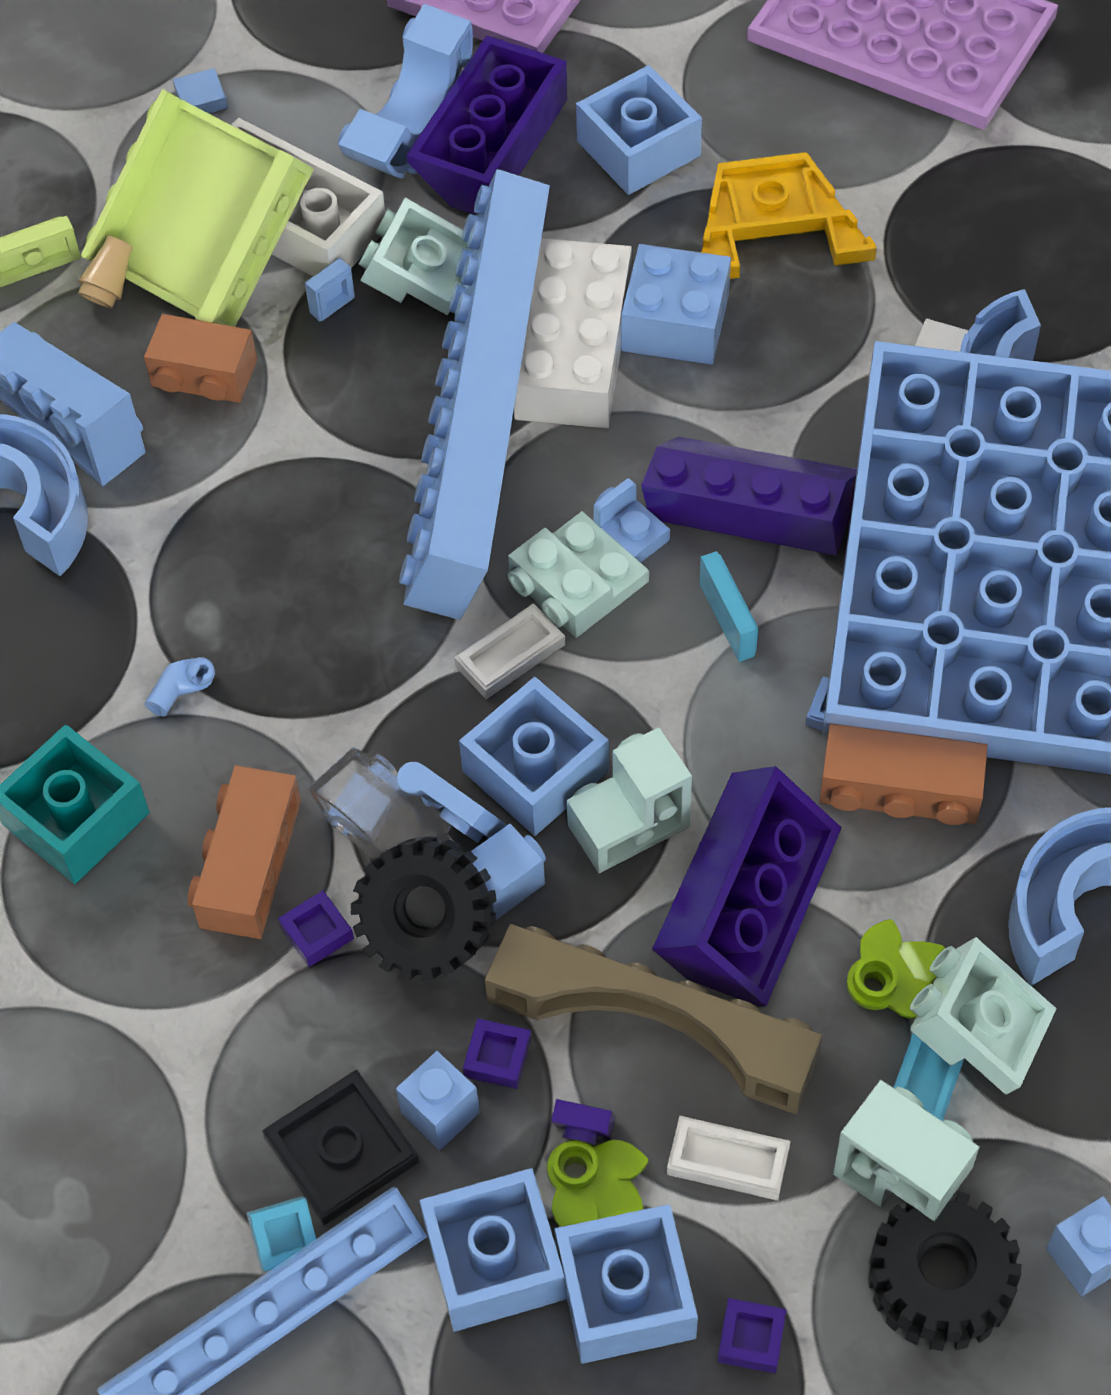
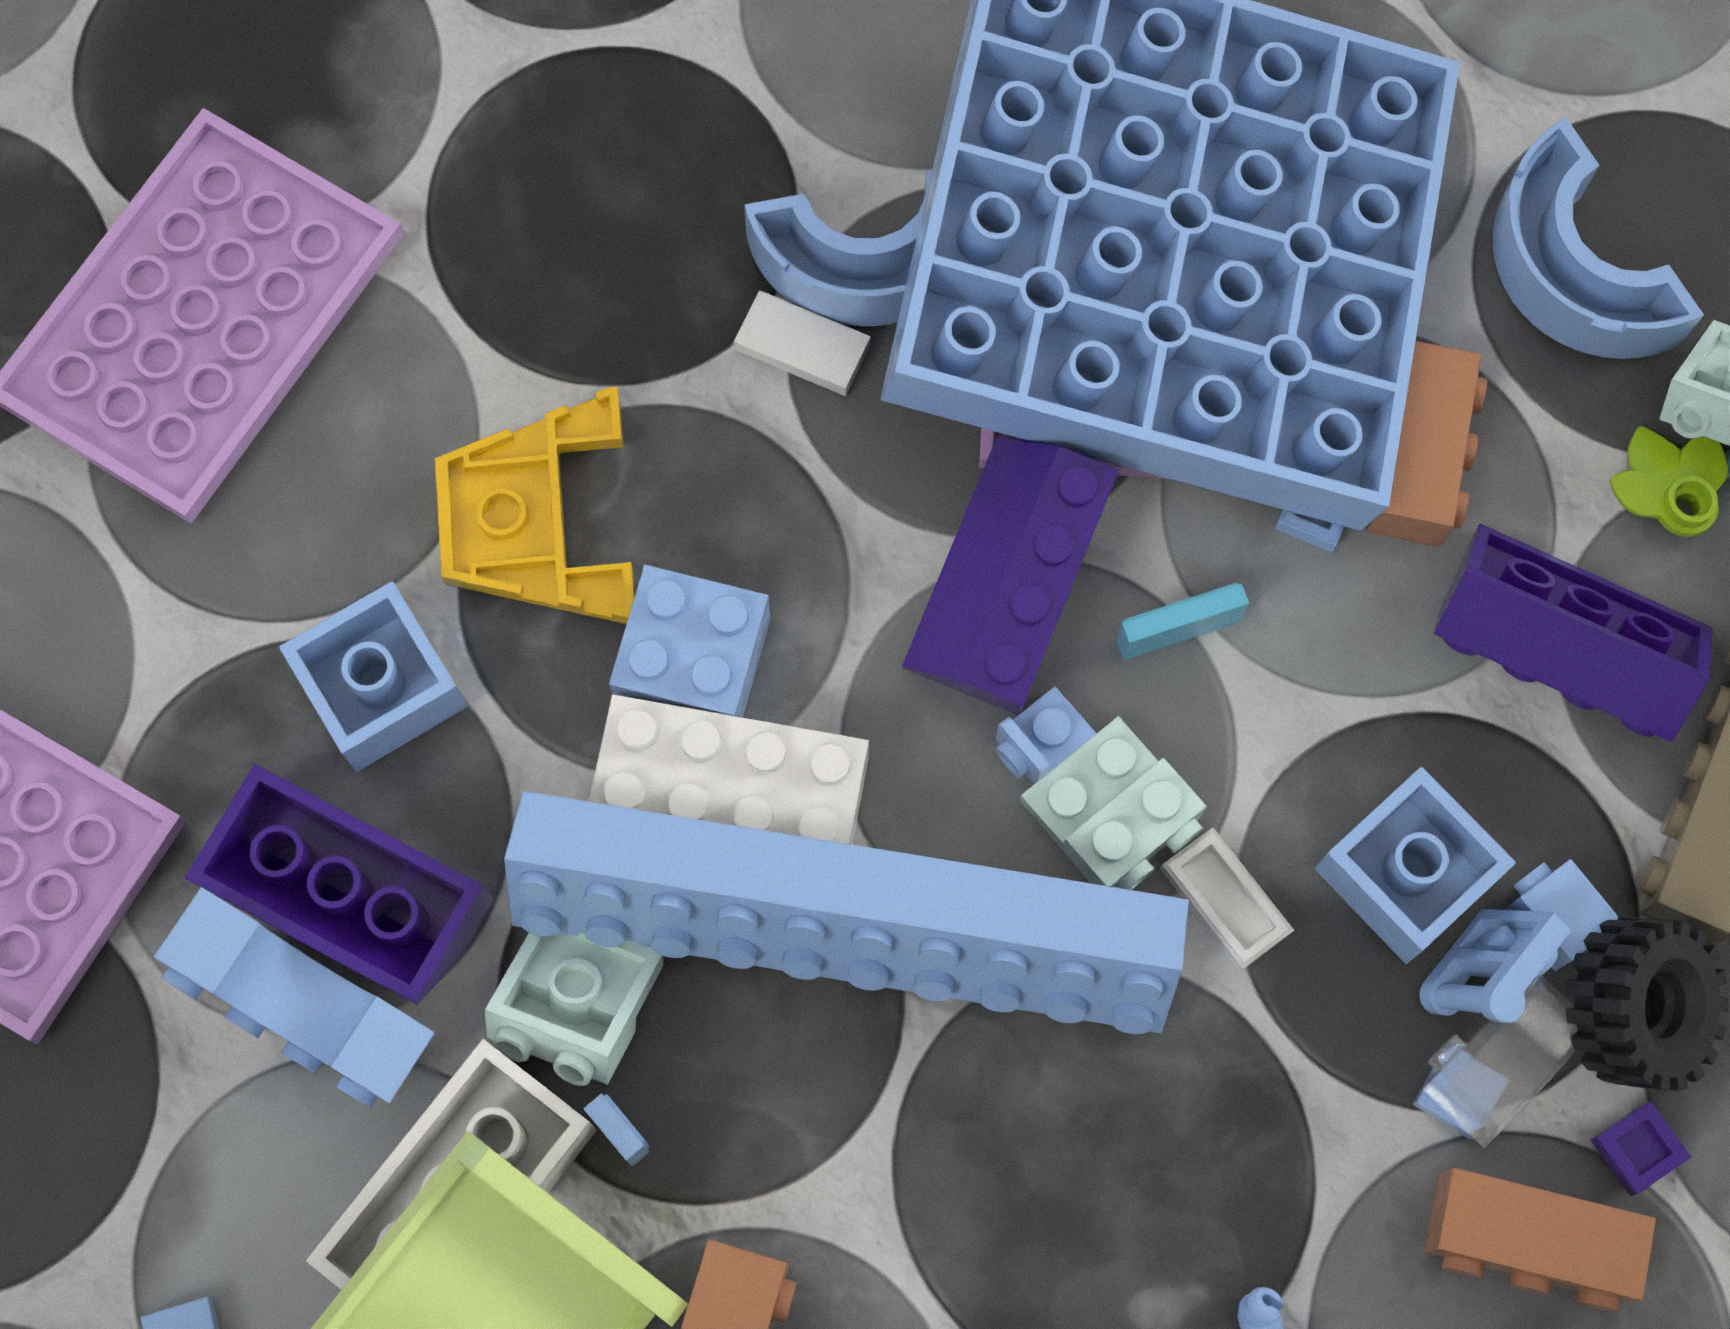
camera: 90 degrees left, 15 degrees up
(636, 806) = (1477, 748): light aqua brick -> none

